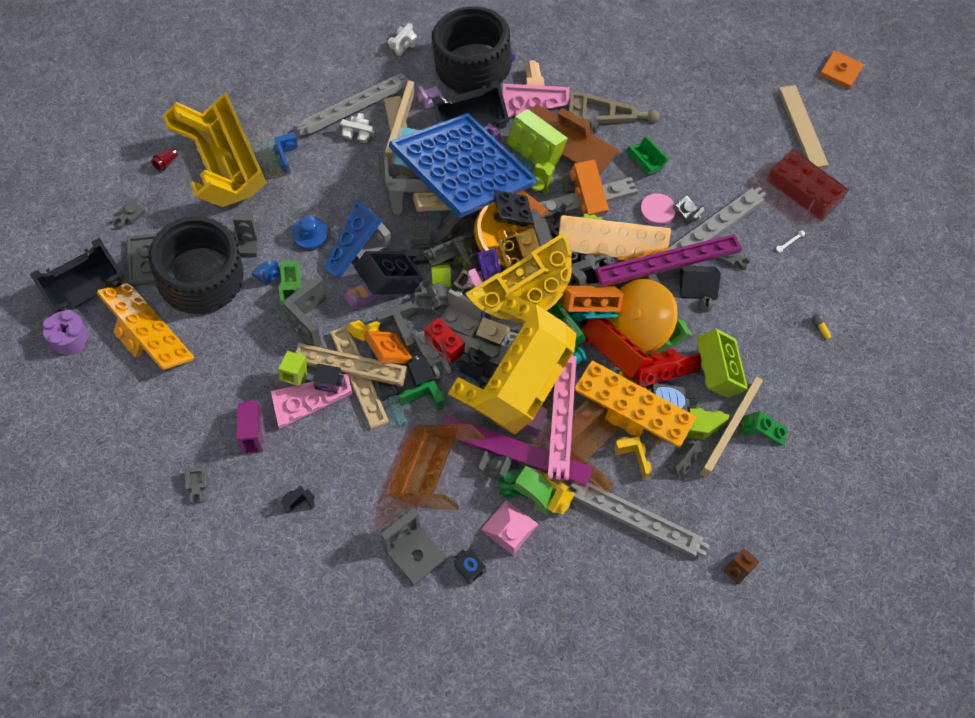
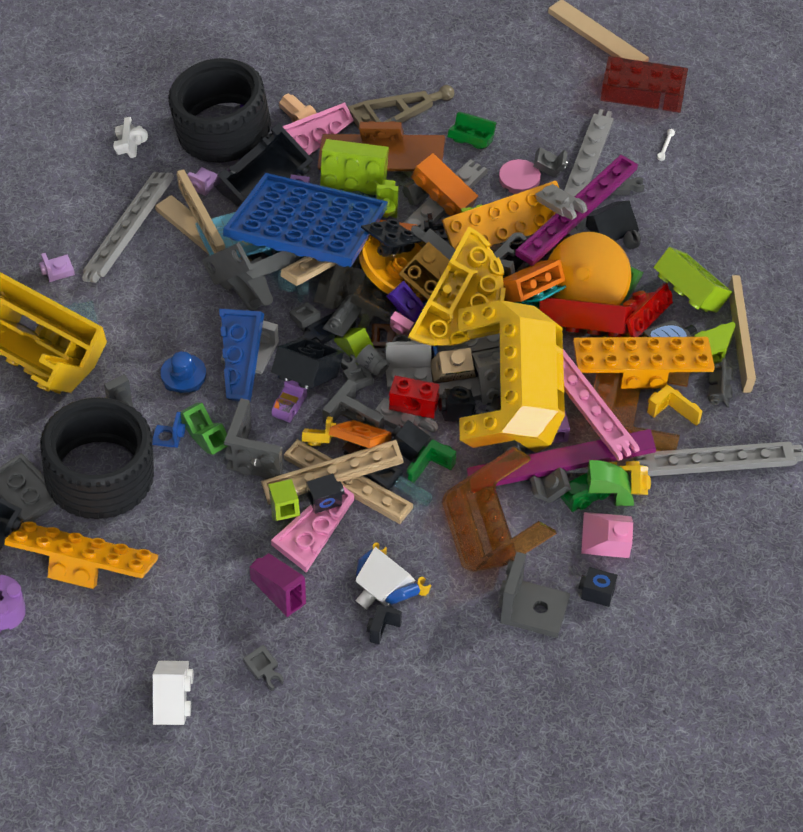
camera: 30 degrees left, 10 degrees down
(117, 462) = (170, 686): none -> white brick
(284, 143) = (86, 305): blue bracket -> none
(286, 110) = (56, 268): none -> lavender bracket
(322, 467) = (385, 580): none -> white torso
(358, 125) = (152, 244): white hips -> none
(657, 247) = (561, 202): none -> light grey hinge
(760, 422) = (766, 314): green bracket -> none
(819, 321) = (746, 200): piece -> none

